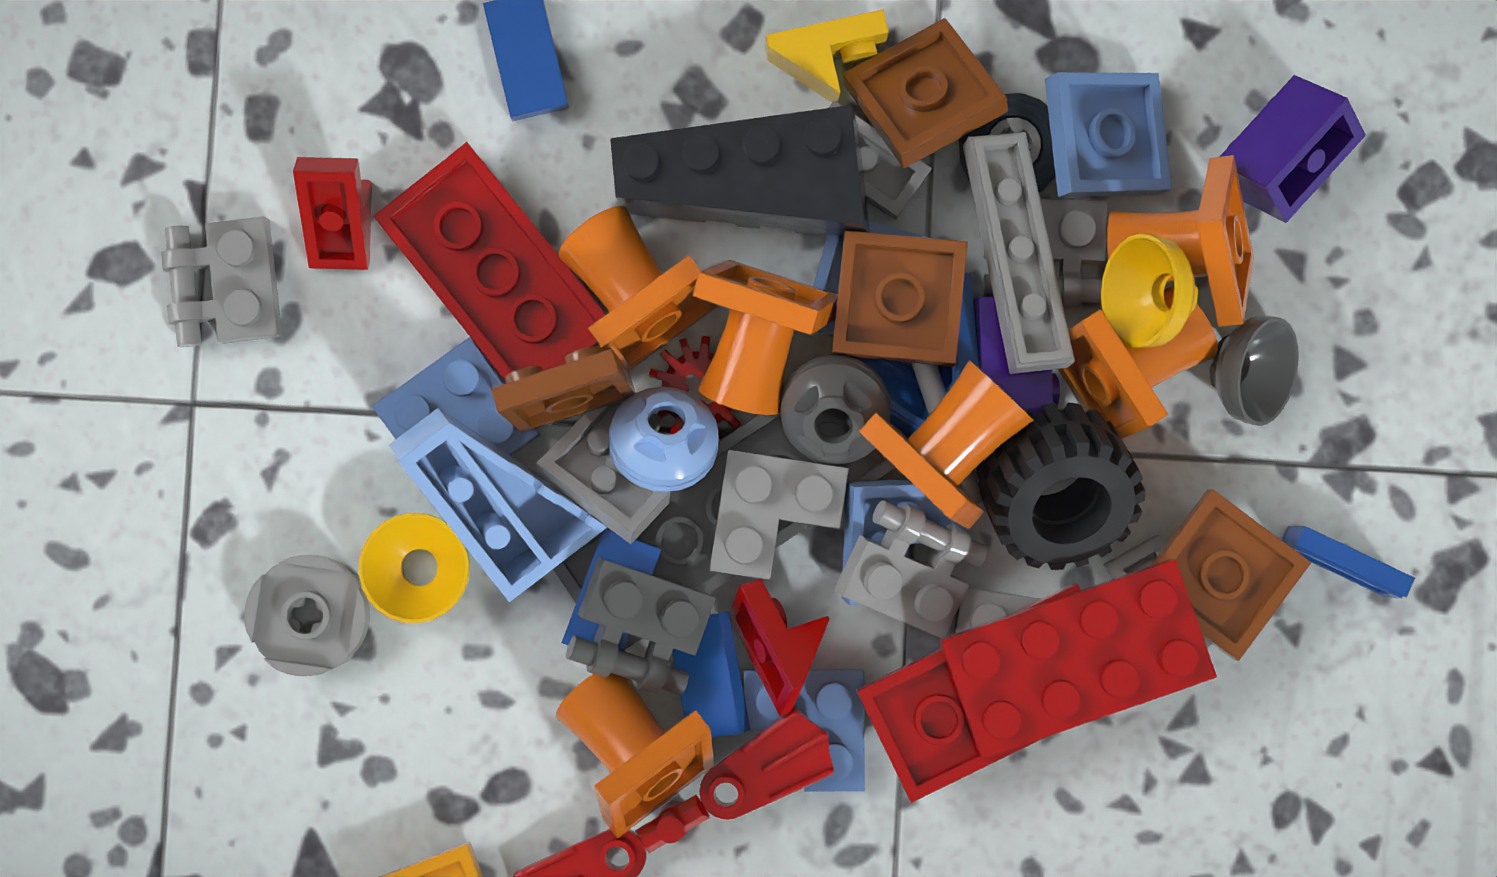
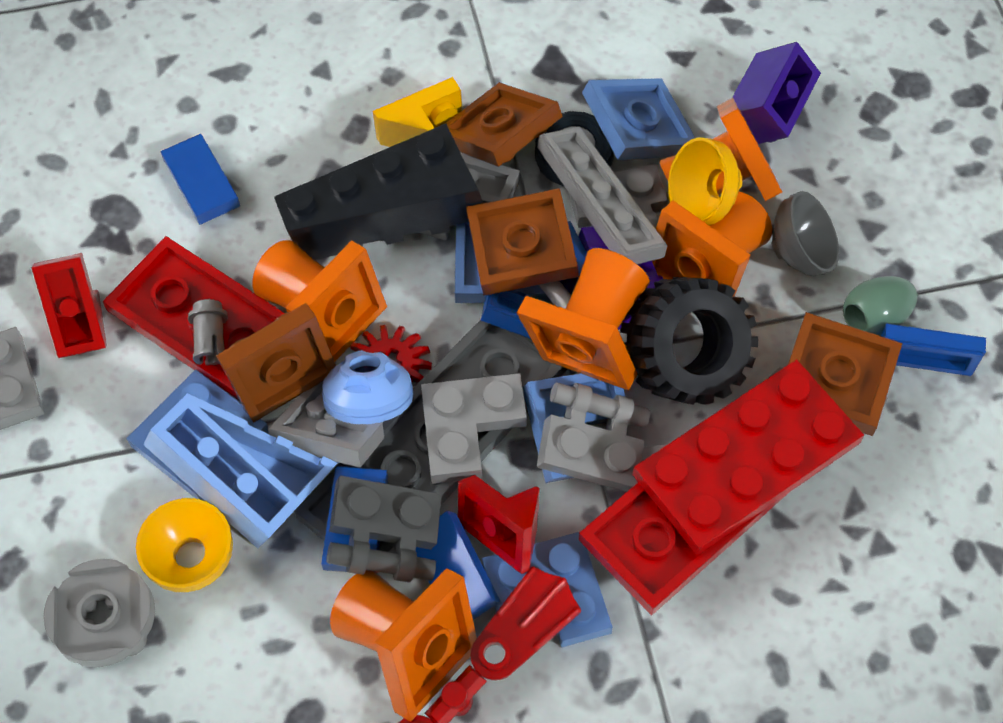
camera: 10 degrees left, 25 degrees down
(492, 306) = (207, 330): none -> light grey pin
(758, 332) = (420, 281): orange plant -> none
(827, 384) = (471, 345): dark grey piece -> none
(1310, 487) = (880, 303): none -> sand green animal

